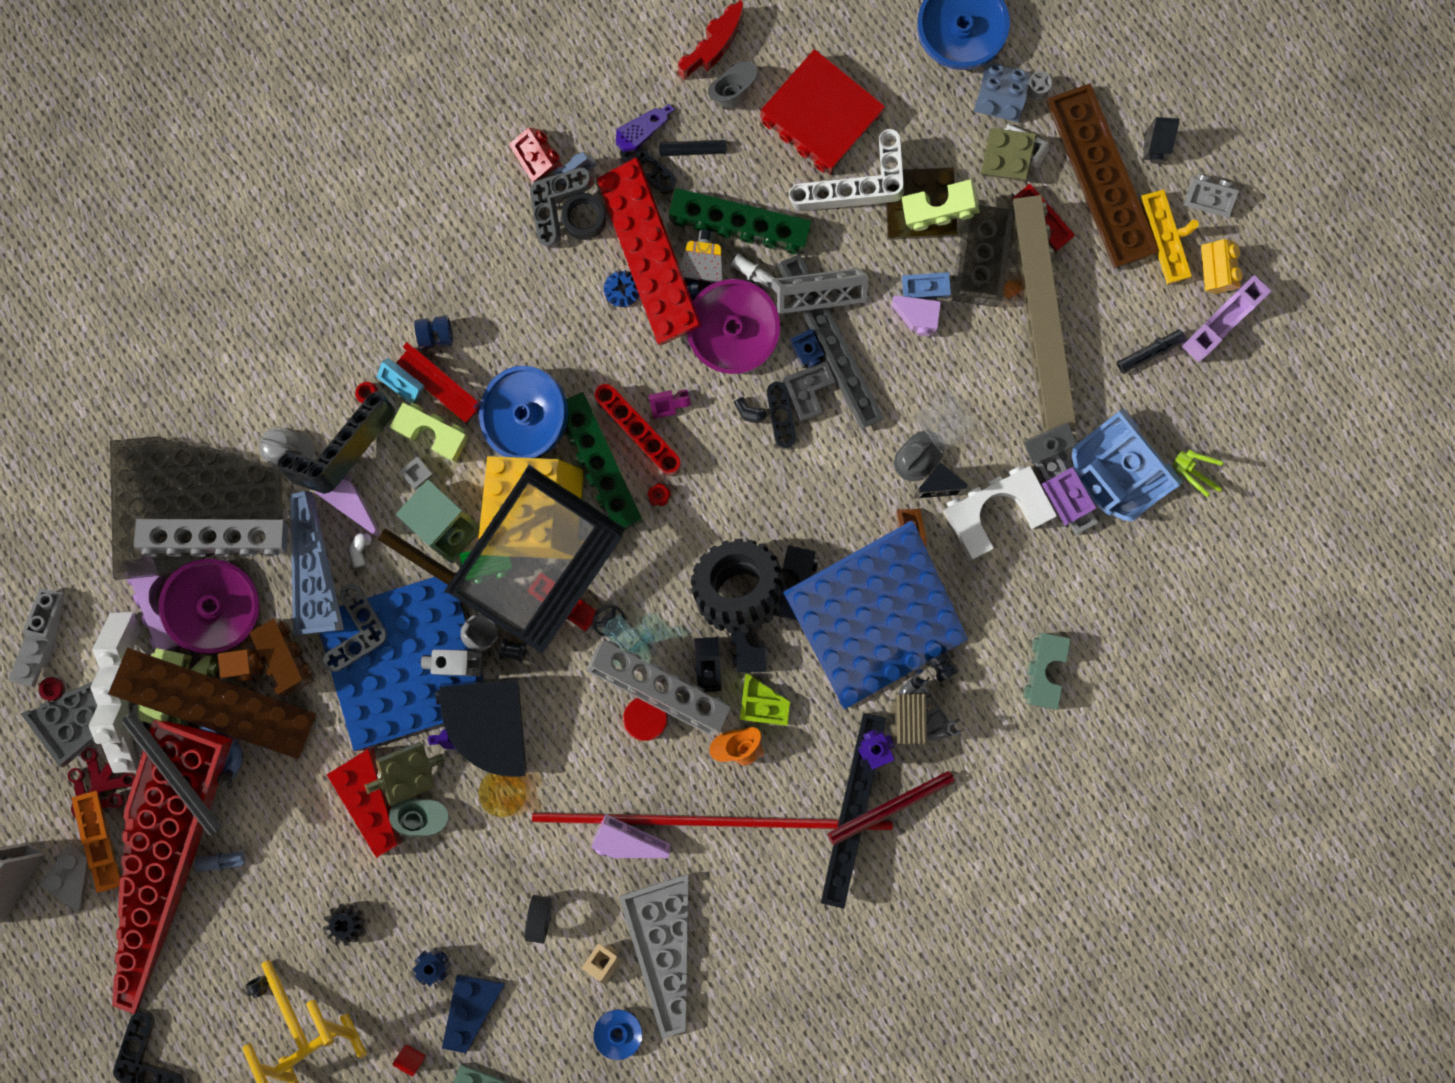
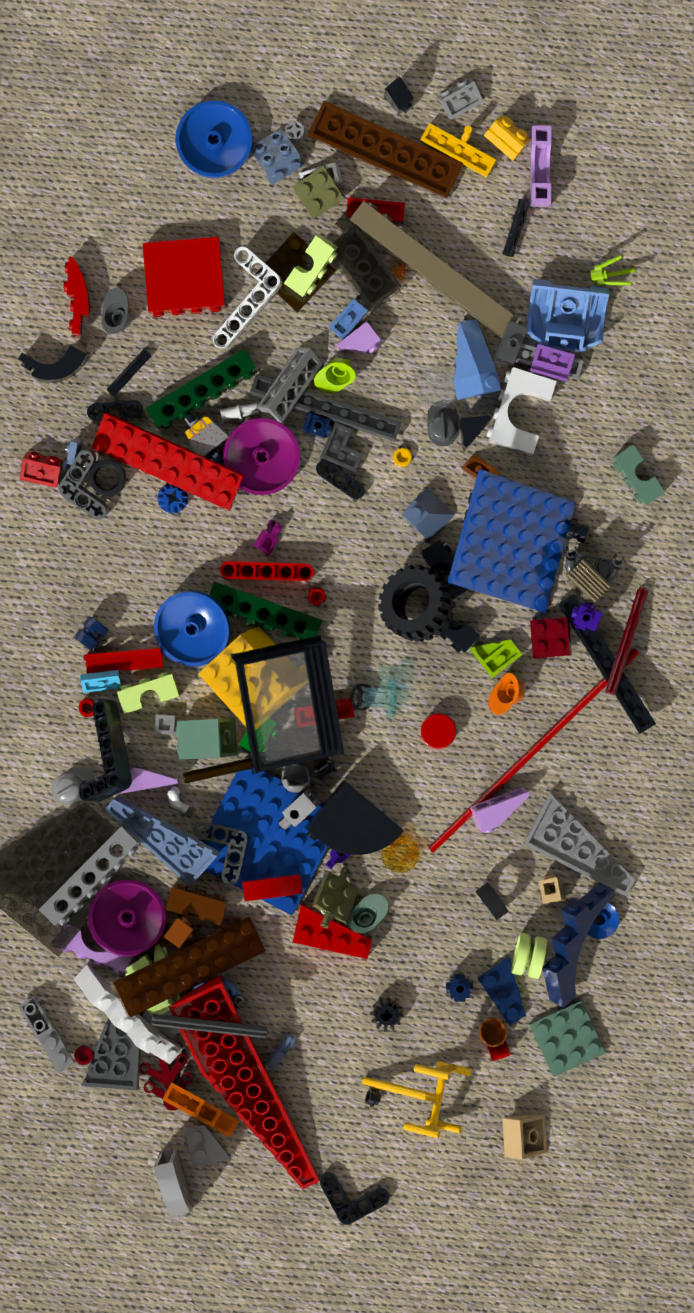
camera: 50 degrees left, 5 degrees up
(358, 707) = (272, 887): none -> red slope
(420, 1039) = (493, 1032): none -> dark orange hair
(521, 1003) = (528, 955): none -> yellowish green wheel
(567, 1027) = (567, 943): none -> dark blue arch
(602, 667) = (386, 725): light grey brick -> none
(636, 132) = (89, 388): dark purple piece -> none
(637, 89) = (62, 370): none -> black arch
(708, 664) = (443, 665): black slope -> none
(749, 414) = (320, 498): black arm -> none
(827, 520) = (428, 514): none -> sand blue slope
(827, 736) = (550, 637): none -> dark red plate
(854, 449) = (402, 457): none -> yellow tile
(865, 321) = (335, 376): none -> lime piece
(995, 434) = (474, 365): none -> medium blue wedge

